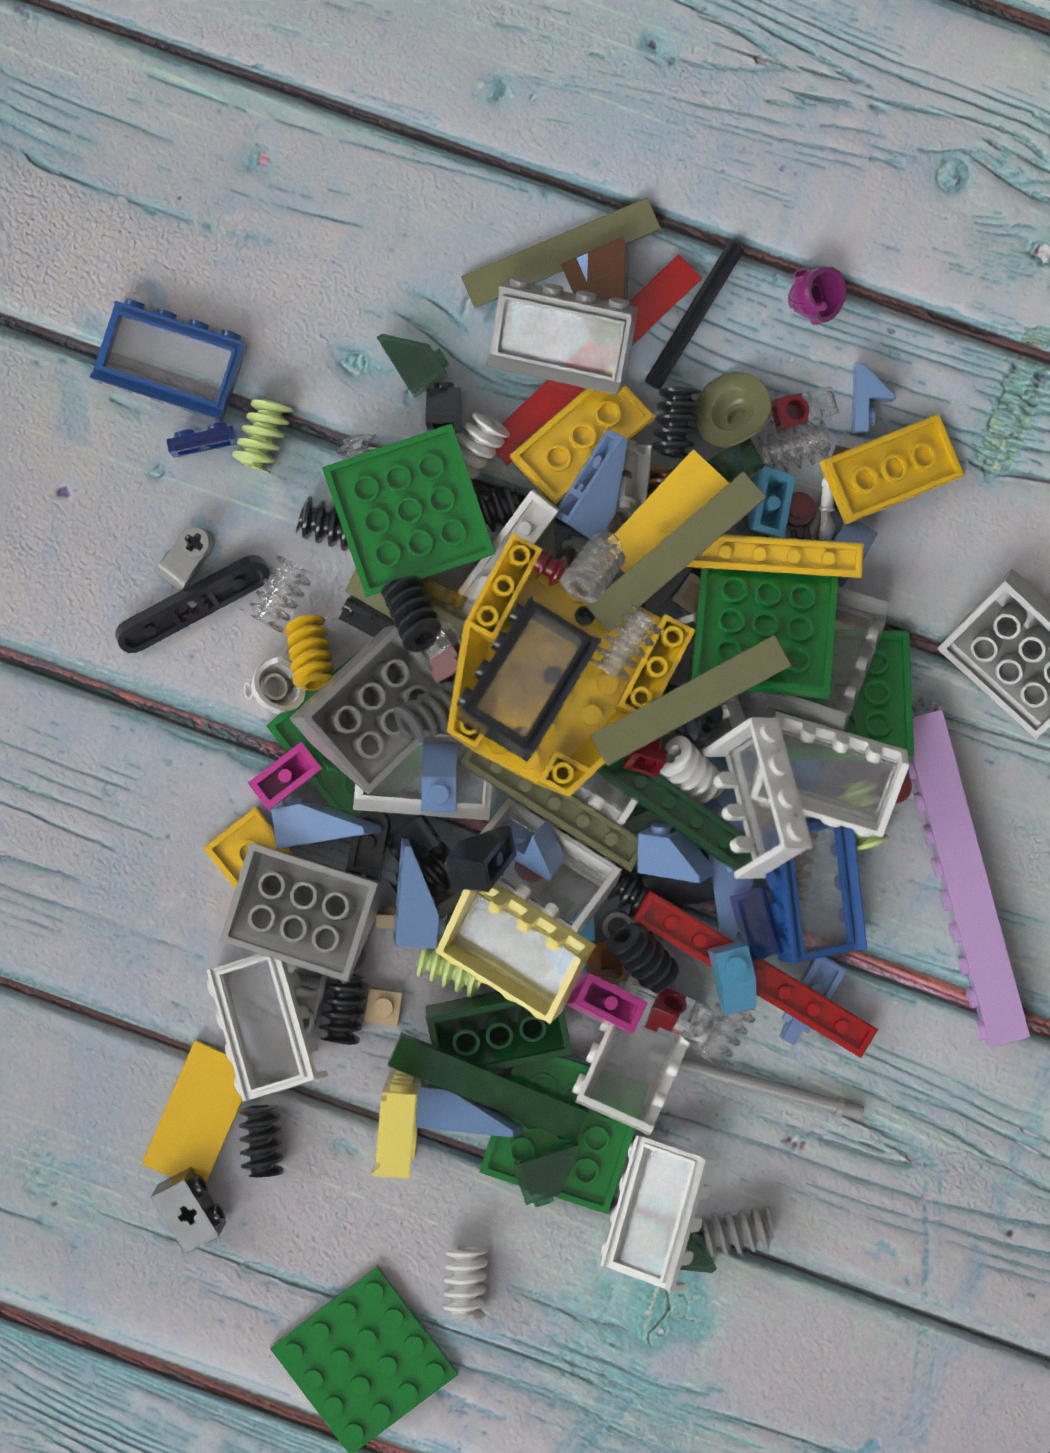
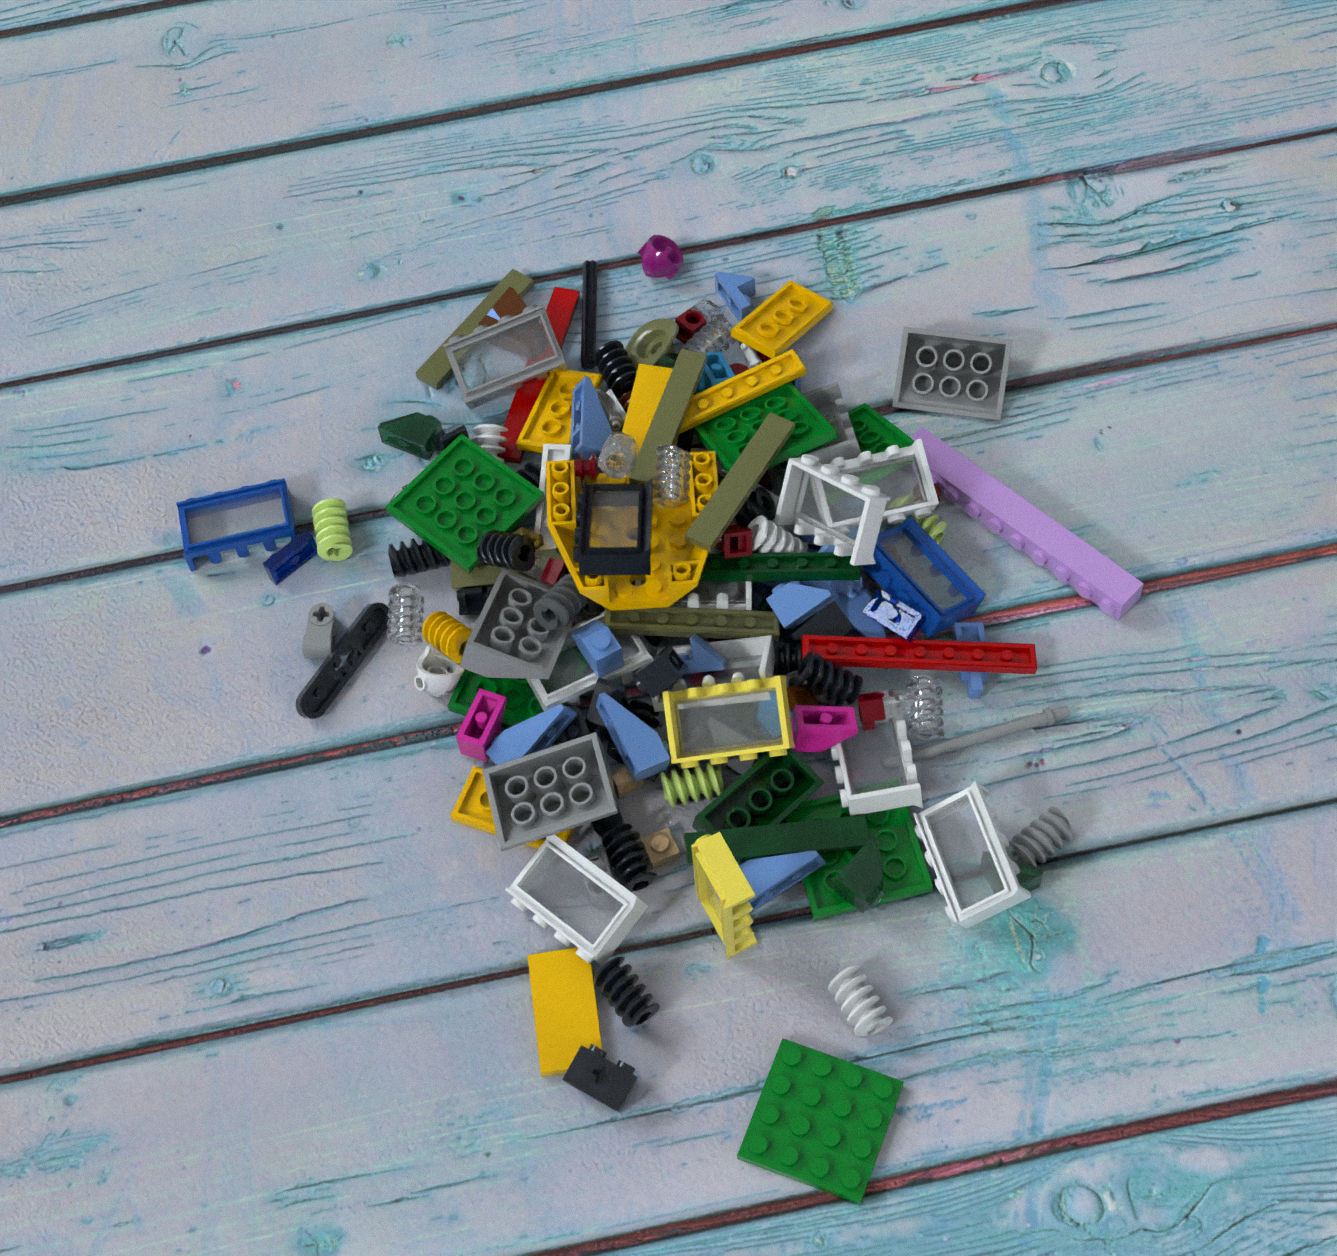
camera: 30 degrees left, 30 degrees down
(734, 977) = (903, 652): dark azure slope -> none

